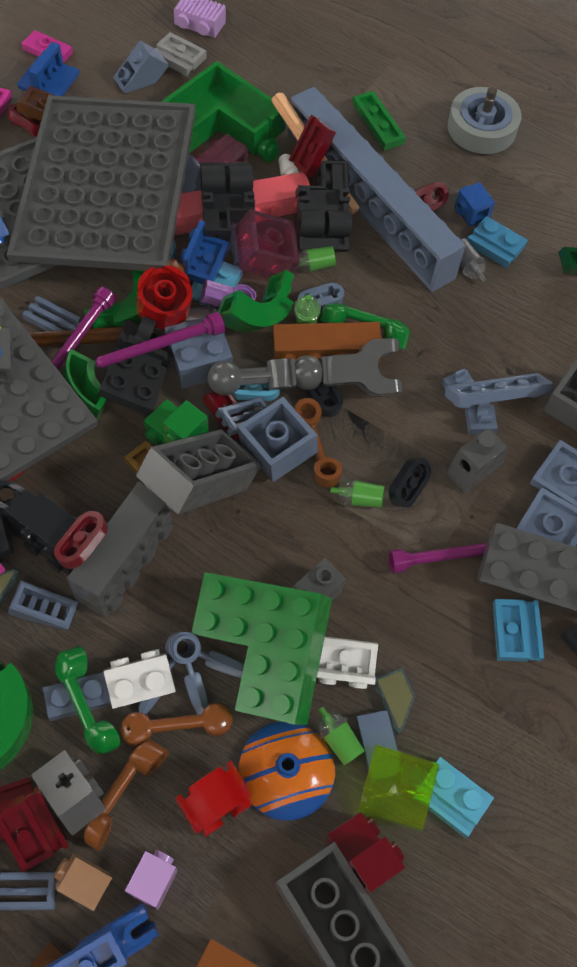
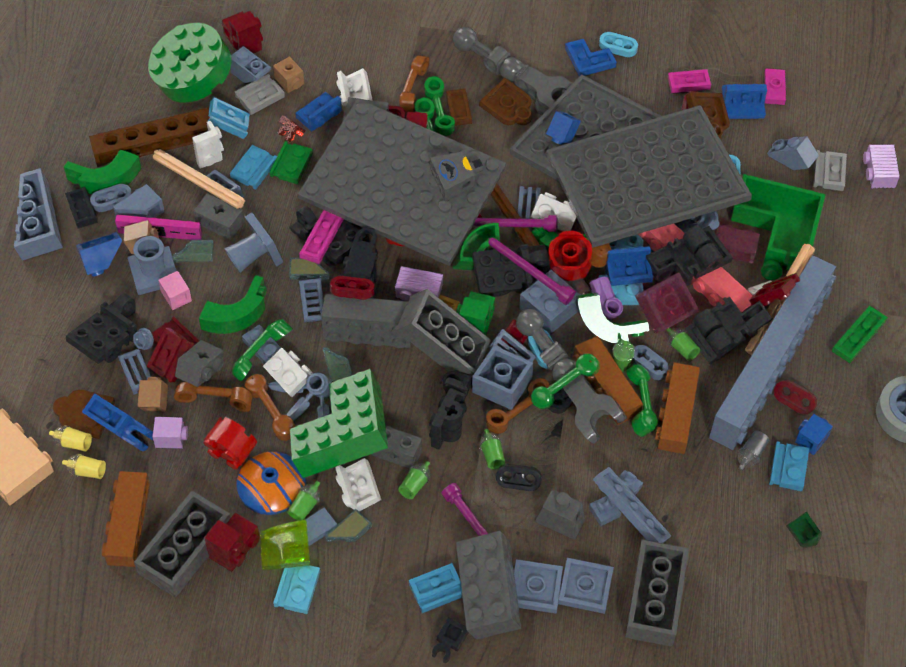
camera: 70 degrees right, 5 degrees down
(79, 294) = (547, 205): none -> white bracket
(97, 474) = (414, 280): none -> lavender brick
(157, 617) = (337, 365): none -> clear light blue tile
(299, 514) = (447, 422): none -> black plate
(321, 344) = (543, 397): none -> green piece
(364, 593) = (416, 478): none -> bright green piece
(392, 296) = (678, 408): none -> dark orange brick

